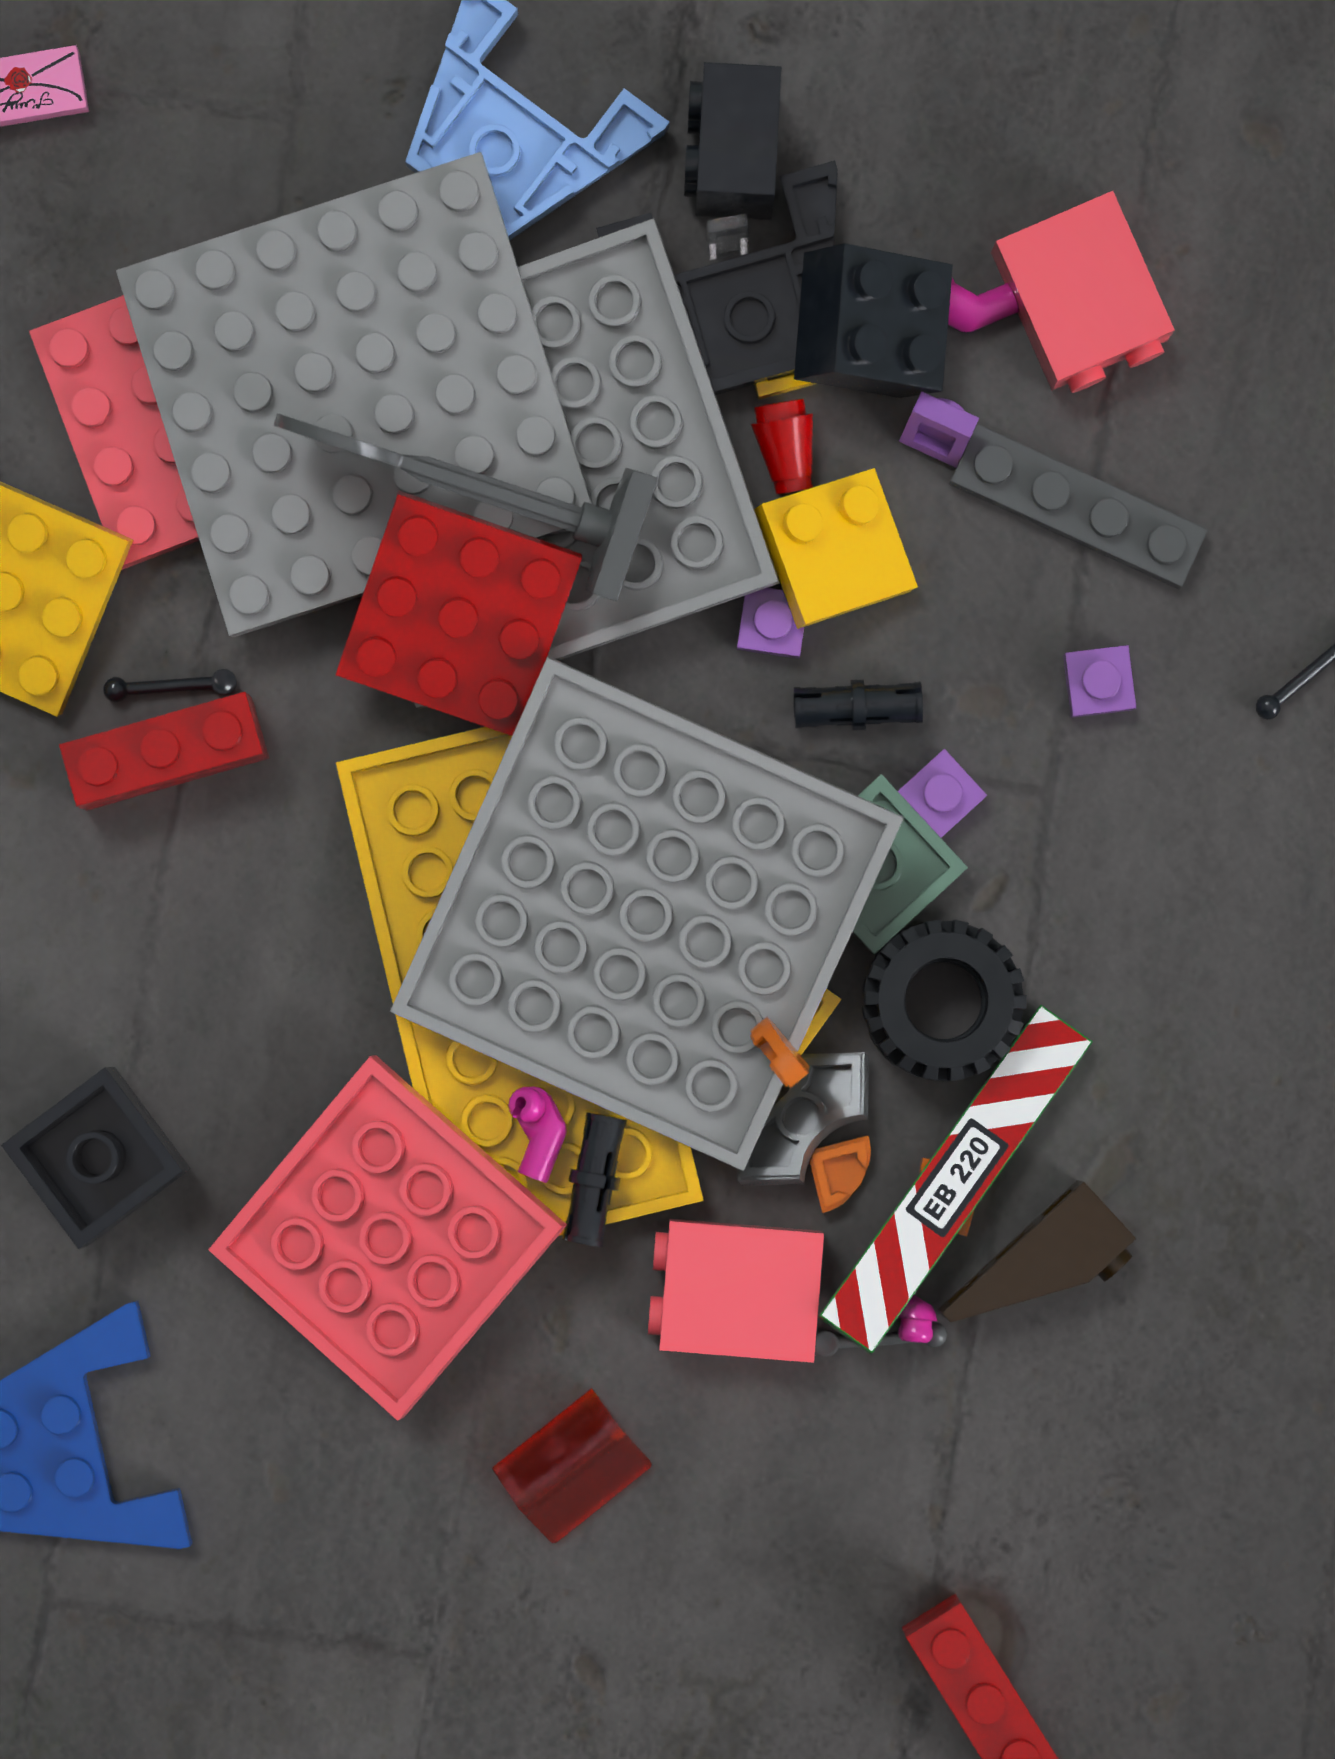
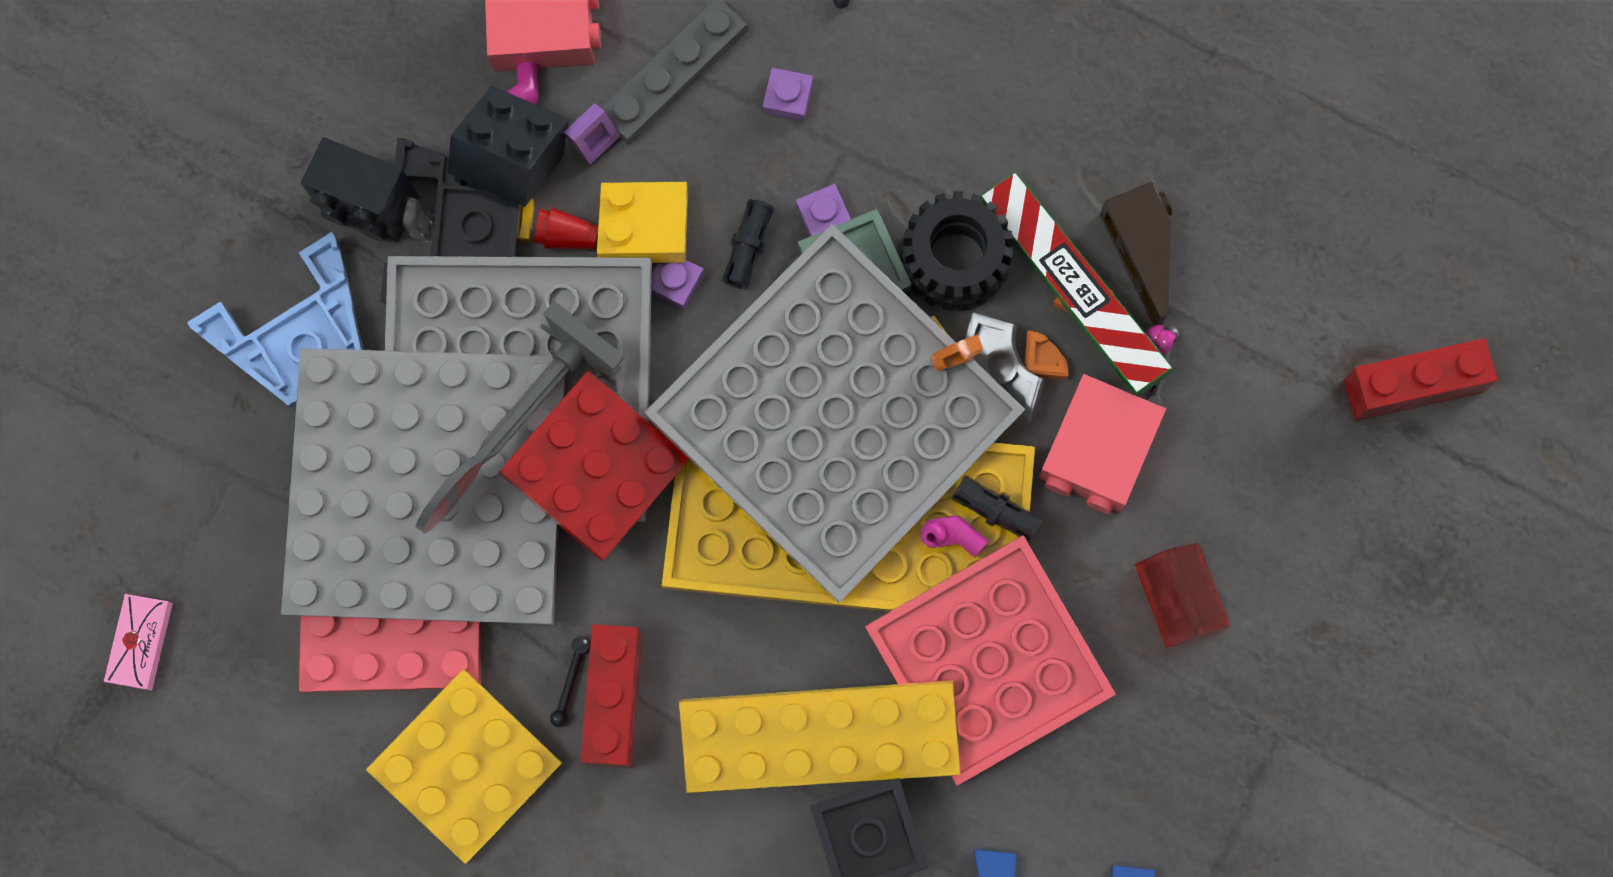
camera: 60 degrees left, 10 degrees down
(207, 1046) = (820, 736): none -> yellow plate

